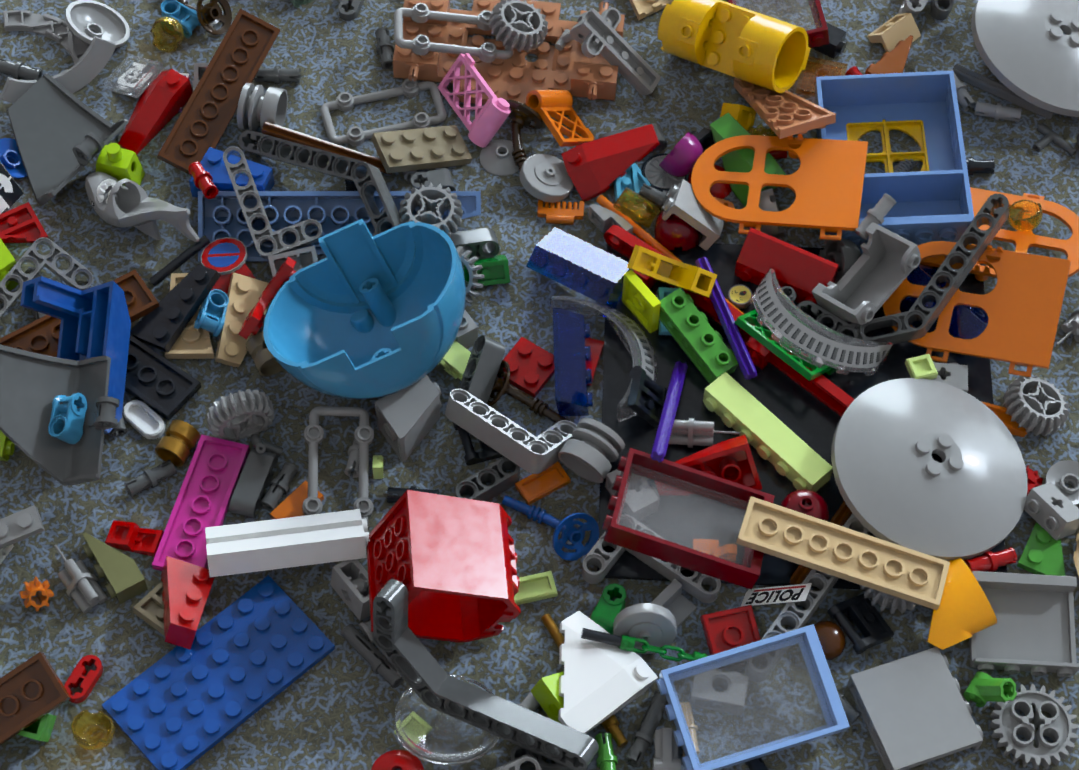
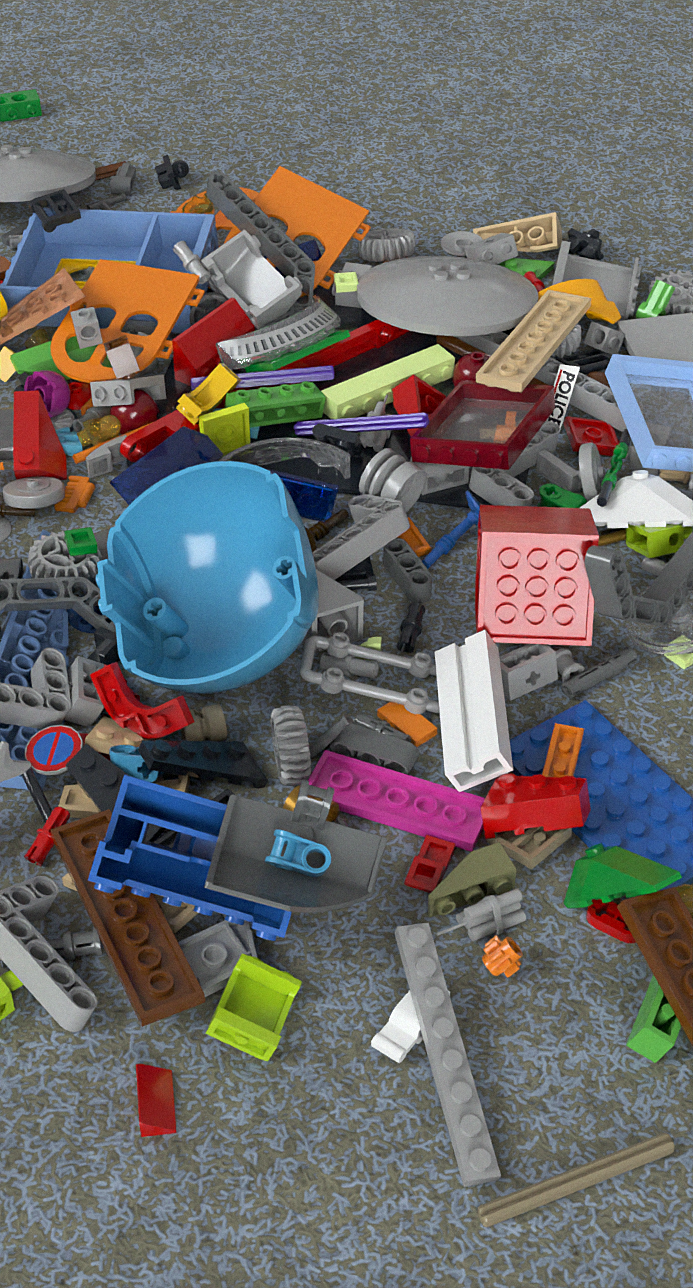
camera: 80 degrees left, 15 degrees down
(97, 666) = (612, 873): none -> green wedge
(145, 272) = (44, 842): none -> red axle
(218, 356) = (204, 759): none -> black wing
(246, 624) = (563, 751): none -> orange tile
(434, 212) = (80, 541): none -> green plate
(697, 188) = (121, 358): none -> brick
(747, 154) = (86, 327): none -> light grey brick
(905, 637) = (604, 338): none -> light grey brick
(946, 89) = (61, 206): none -> black plate

